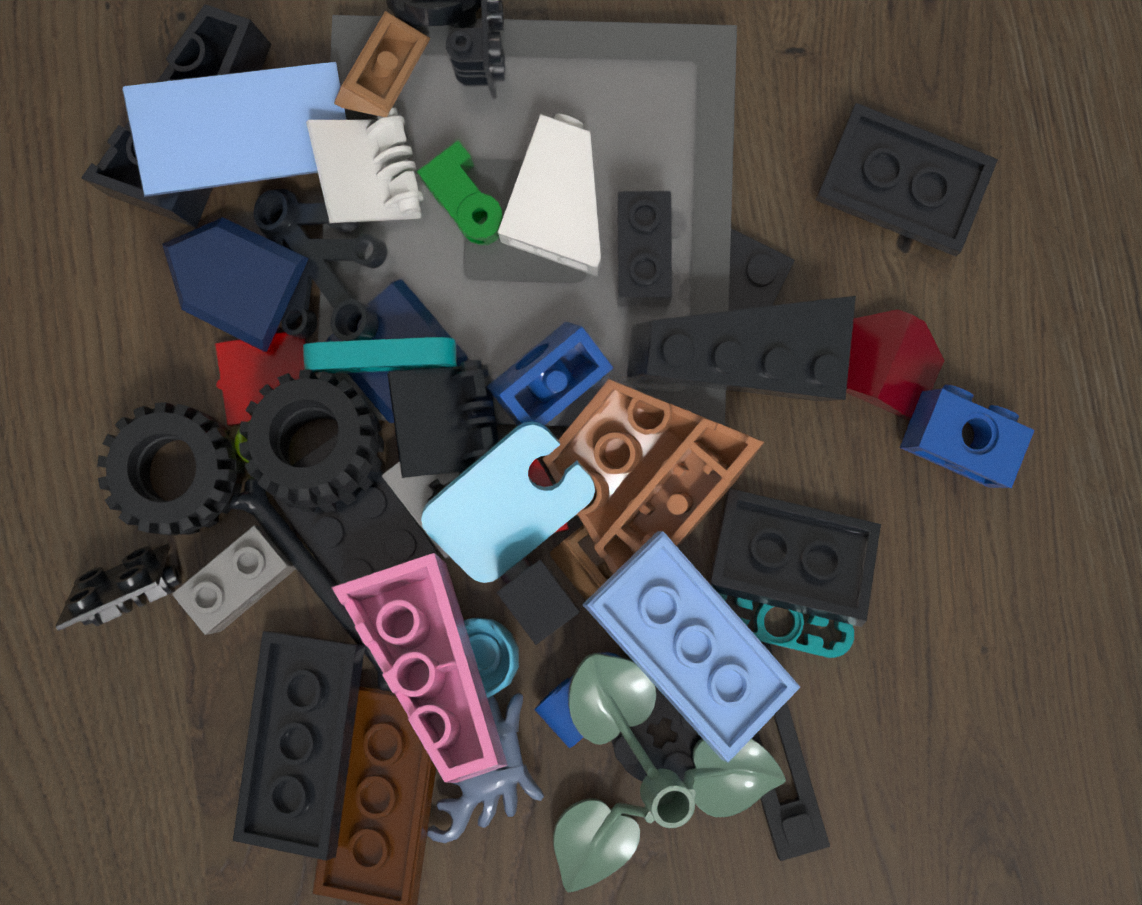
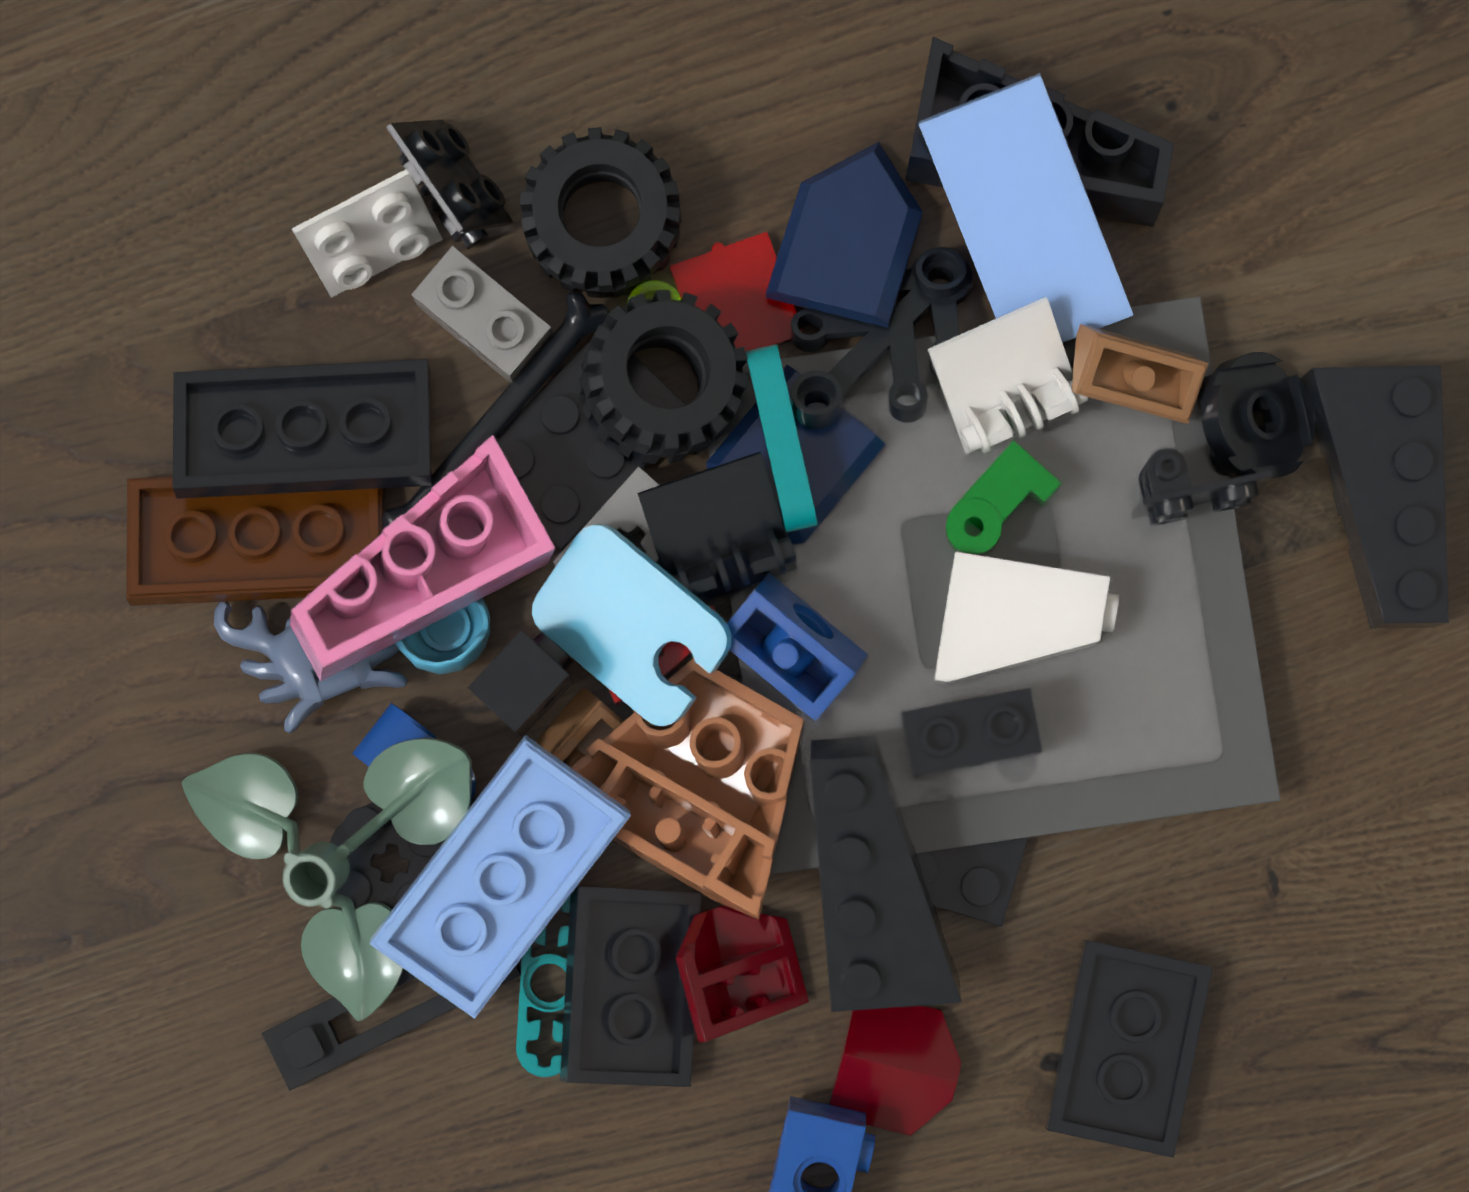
camera: 75 degrees right, 0 degrees up
(148, 661) = (368, 233): none -> white hinge
(797, 470) = (738, 970): none -> dark red slope

